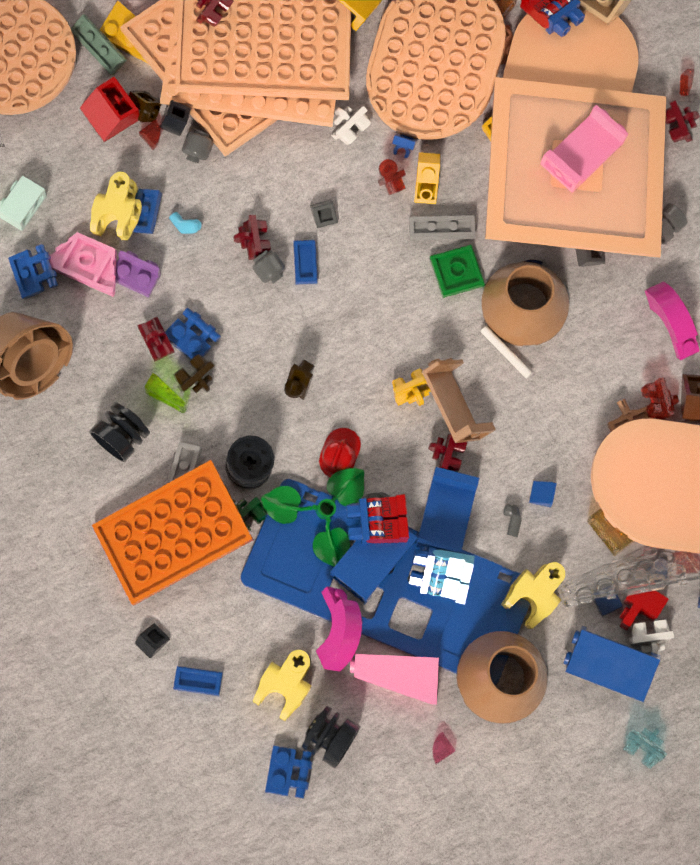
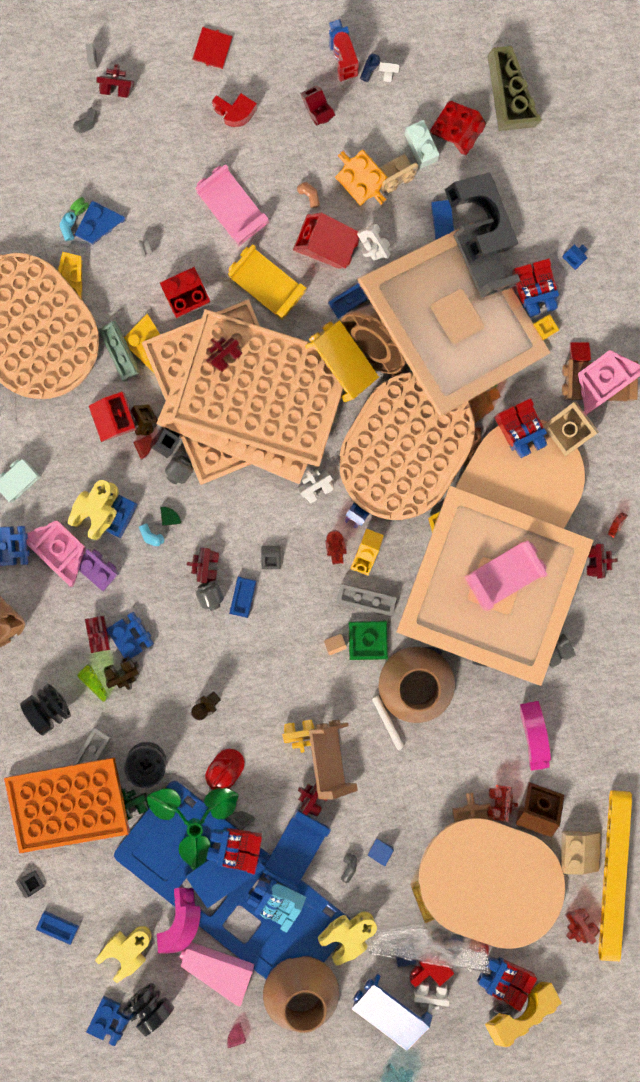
camera: 25 degrees right, 15 degrees up
(200, 199) = (169, 516): none -> dark green tile
(423, 284) = (335, 644): none -> light nougat slope

